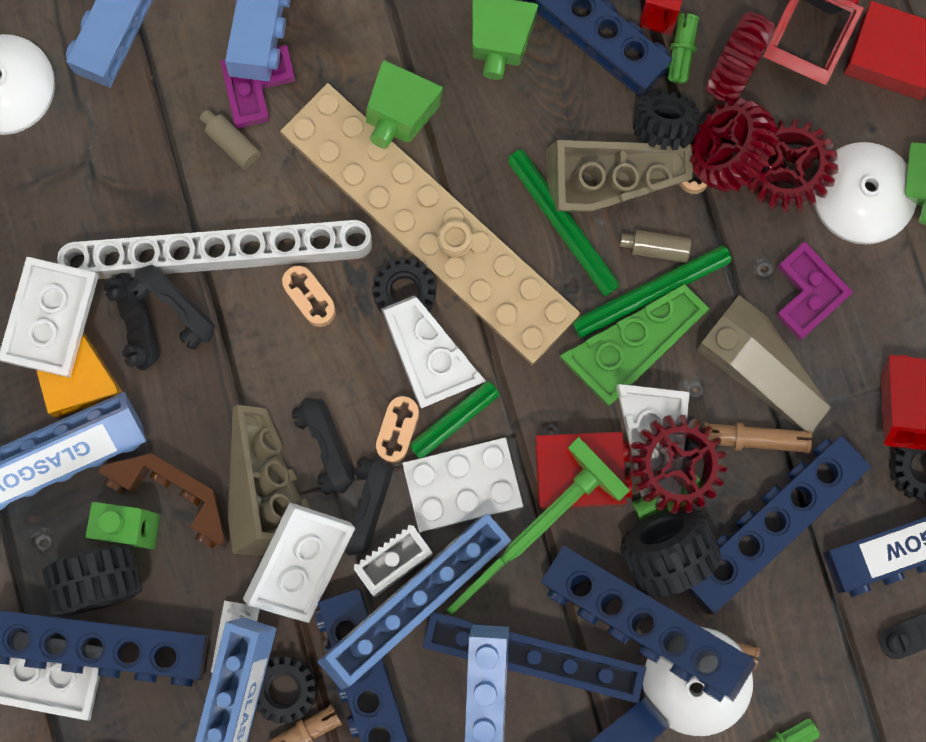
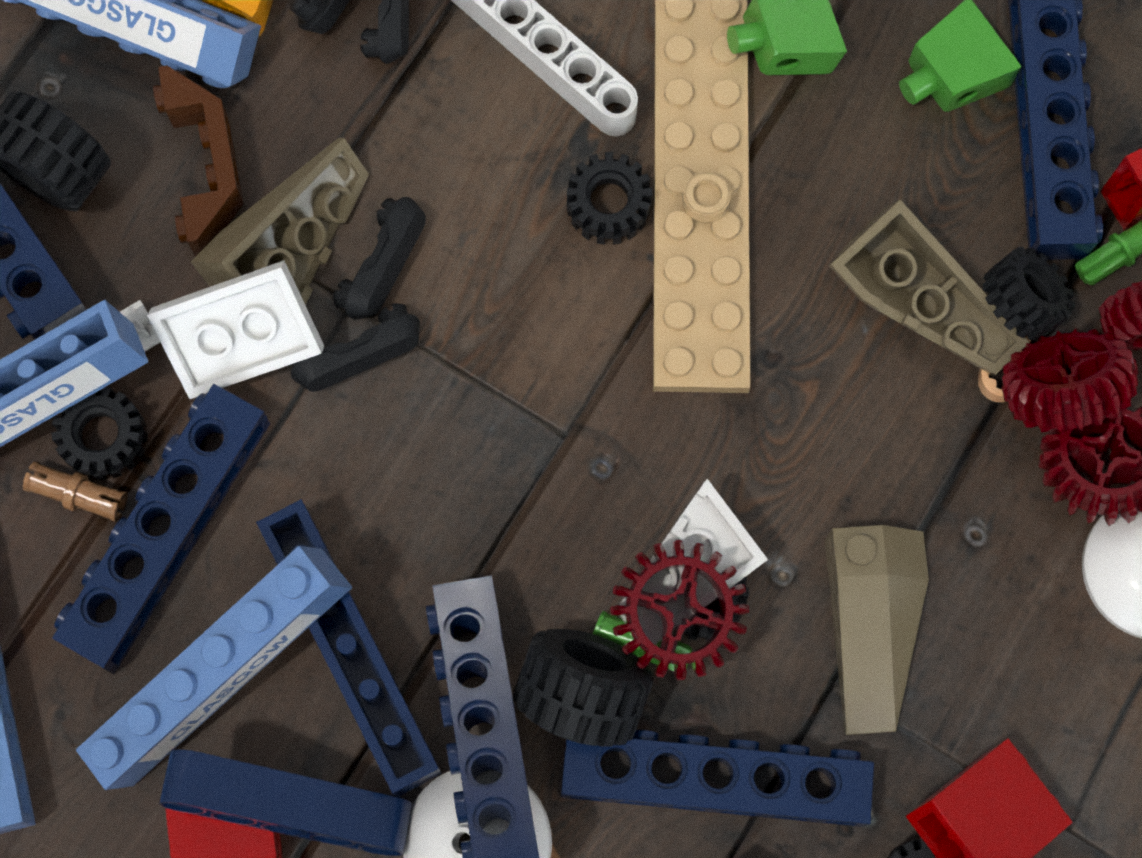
camera: 45 degrees right, 5 degrees down
(123, 525) = (121, 132): bright green torso -> none
(315, 291) = (508, 114): light nougat beam -> none
(389, 427) = (458, 305): light nougat beam -> none
(393, 561) = (322, 421): white brick -> none
(413, 602) = (296, 471): medium blue brick -> none
(428, 354) = (565, 273): white wing -> none
(454, 420) = (524, 361): green axle -> none
(462, 485) = (465, 427): white plate -> none
(558, 467) = (586, 529): red brick -> none
(563, 223) = (825, 294): green axle -> none
(592, 475) = (590, 536): bright green piece -> none
(634, 343) = (772, 469): bright green wing -> none
(651, 291) = (842, 440): green axle -> none
(657, 245) = (893, 403): dark tan cylinder -> none
(760, 438) = (791, 681): medium nougat pin -> none
(819, 288) = (1005, 610): magenta plate -> none

